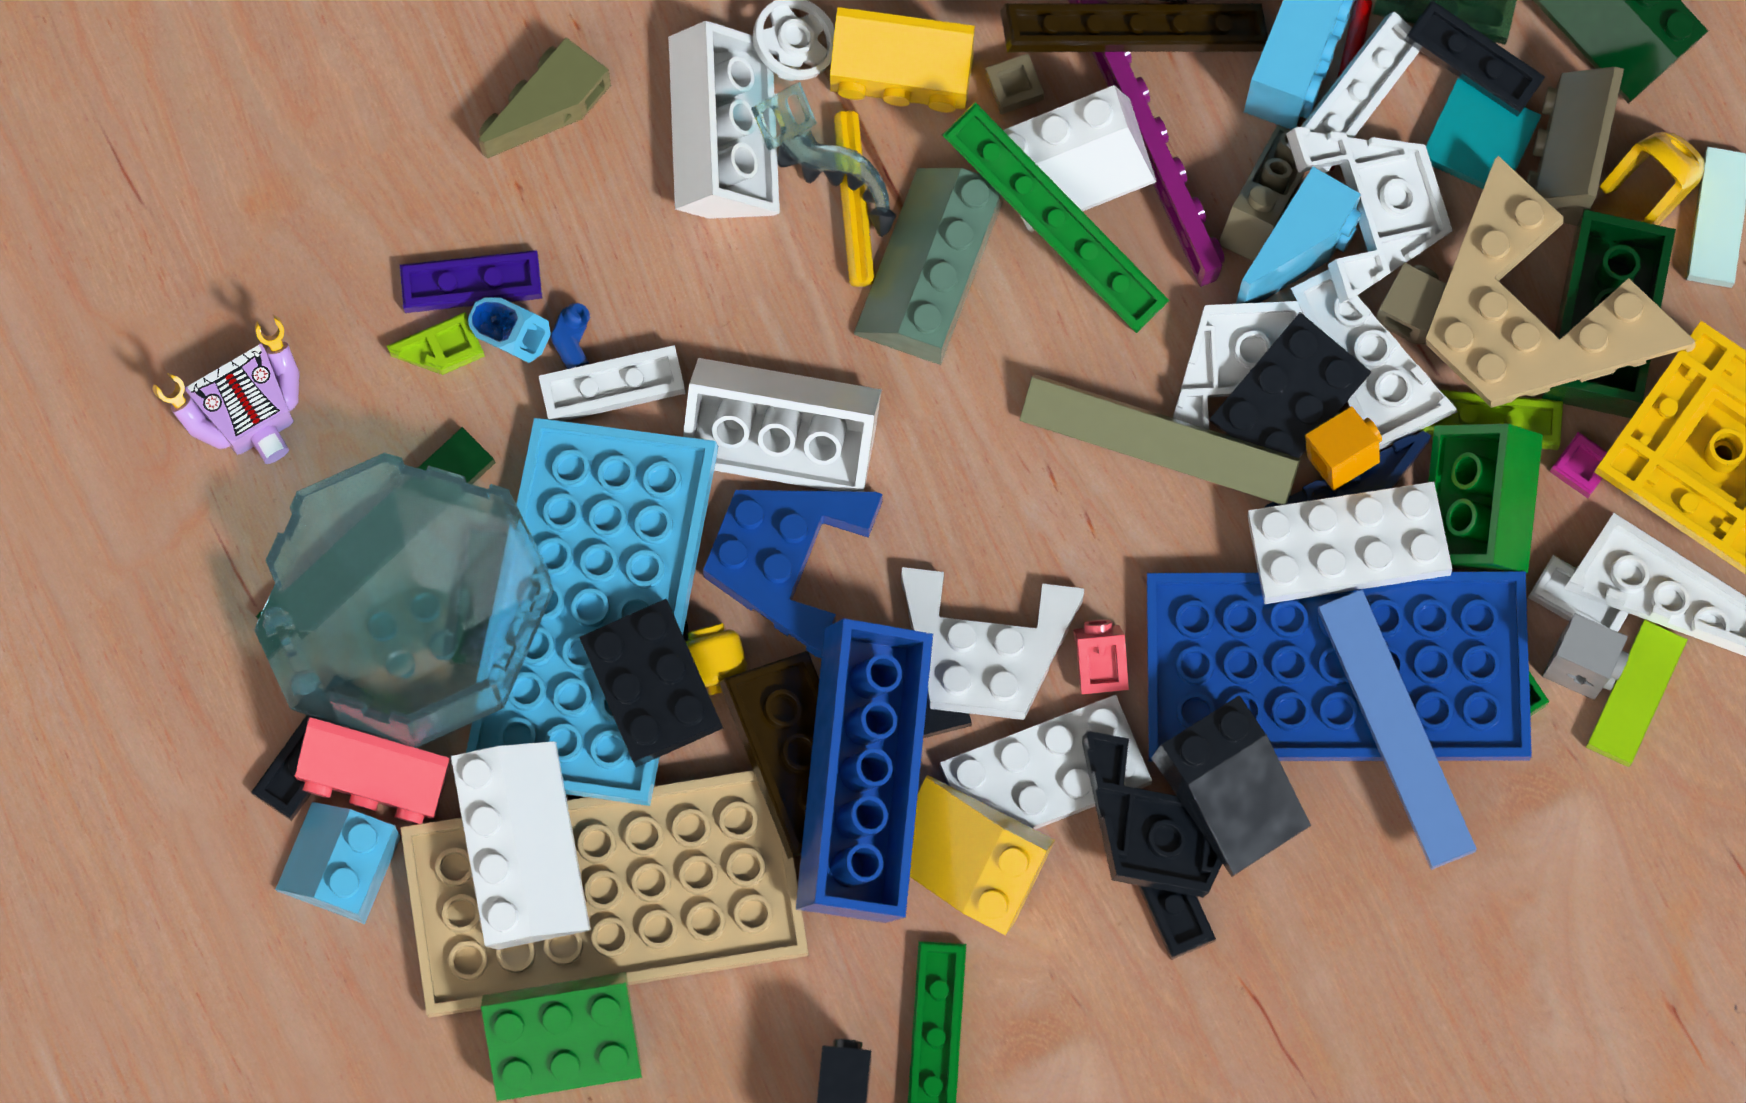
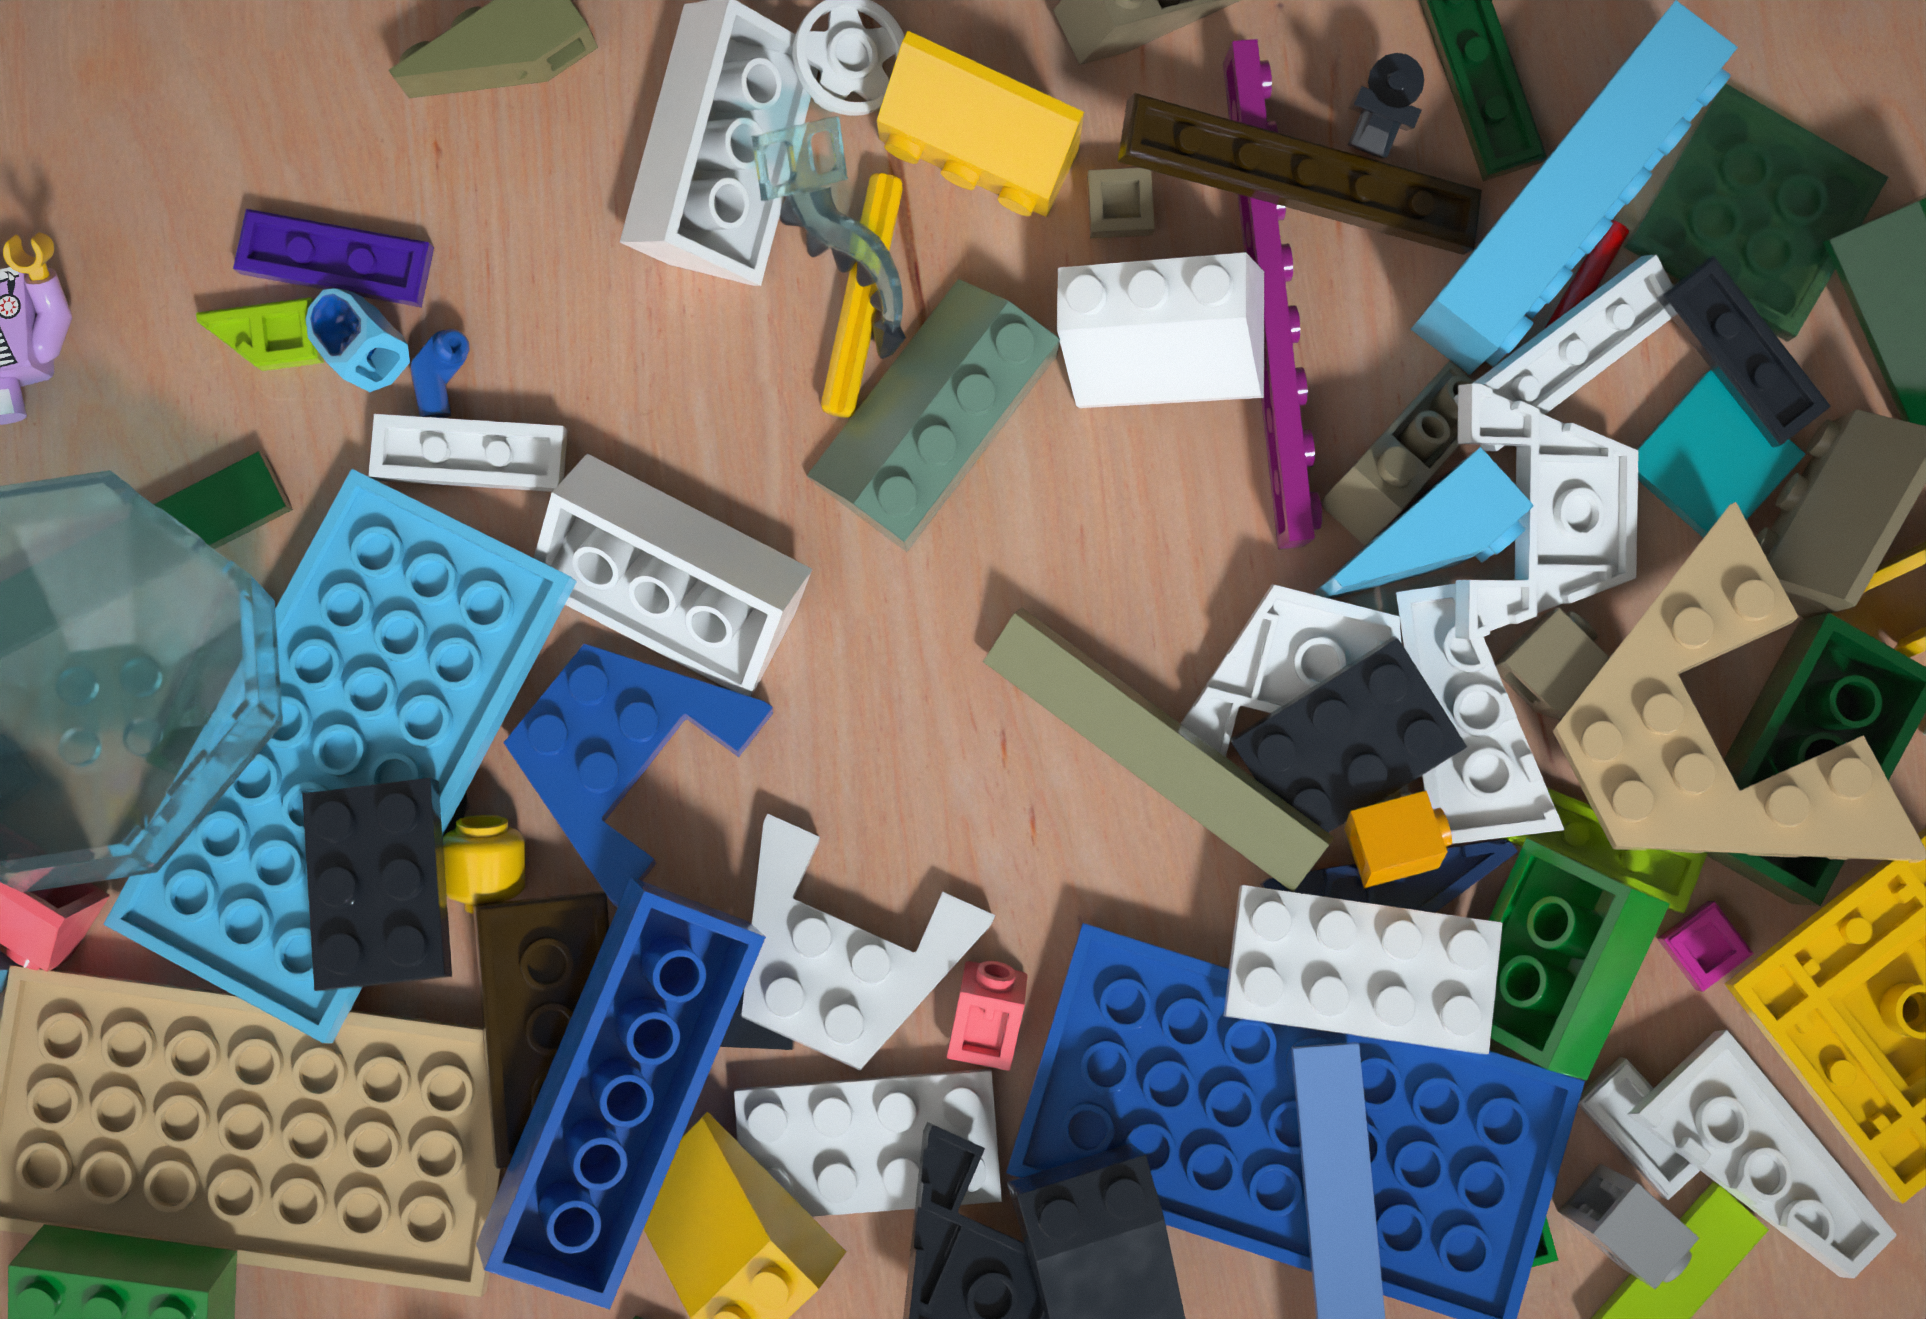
camera: 20 degrees right, 10 degrees up
(520, 844) = (135, 1052): white slope -> none
(1055, 217) = (1110, 404): green tile -> none

